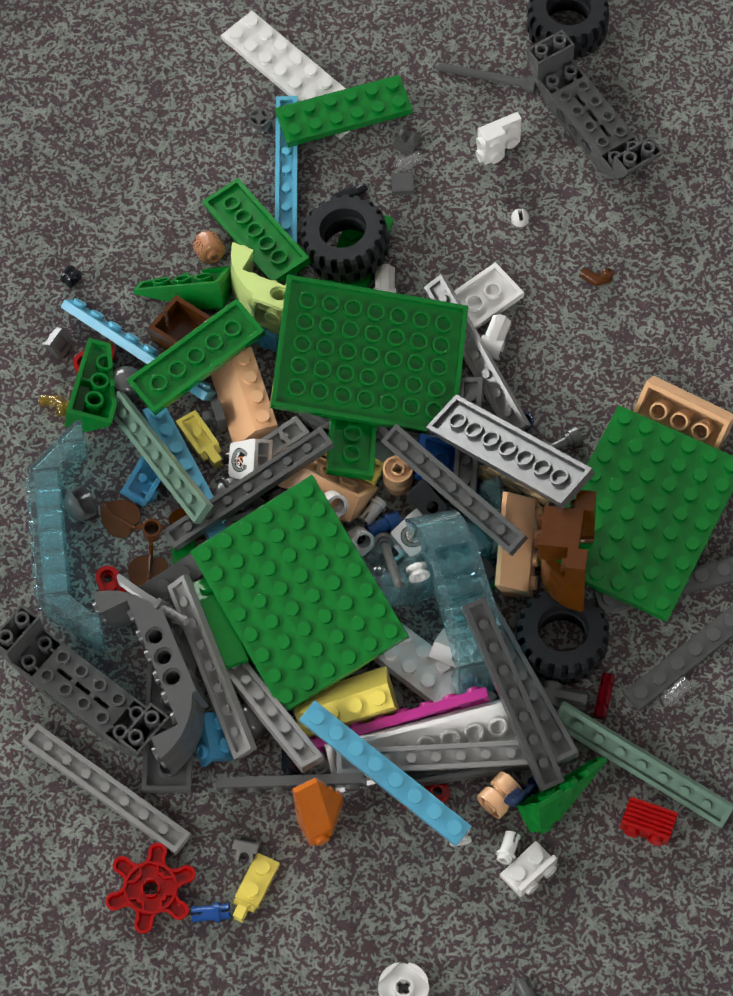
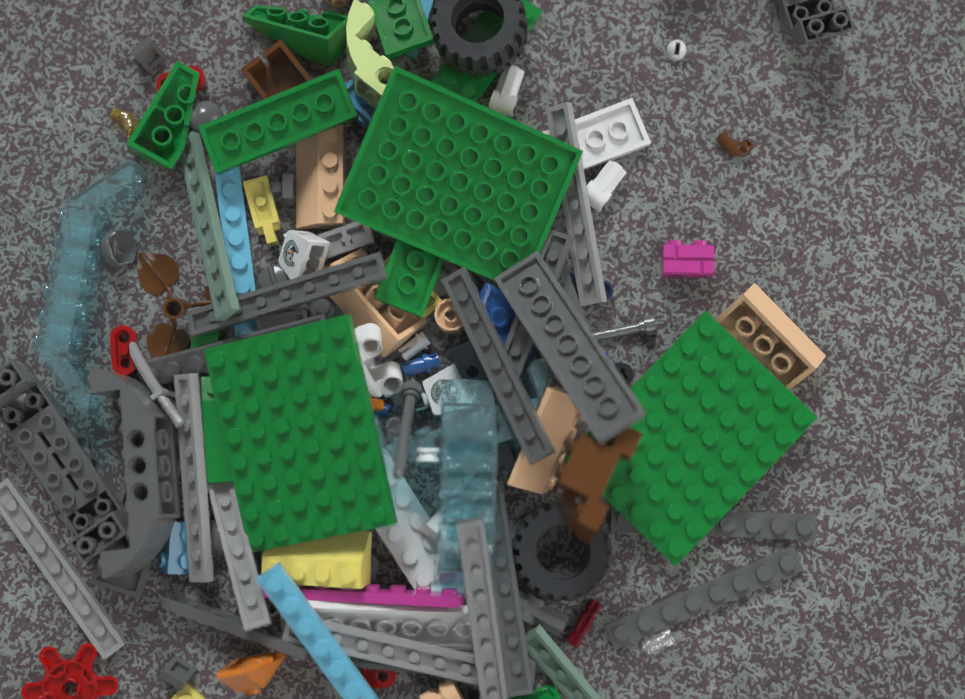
camera: 15 degrees right, 20 degrees up
(127, 341) = (216, 70): medium azure plate -> none
(142, 484) = (185, 245): dark azure bracket -> none
(589, 375) = (686, 260): none -> dark pink brick

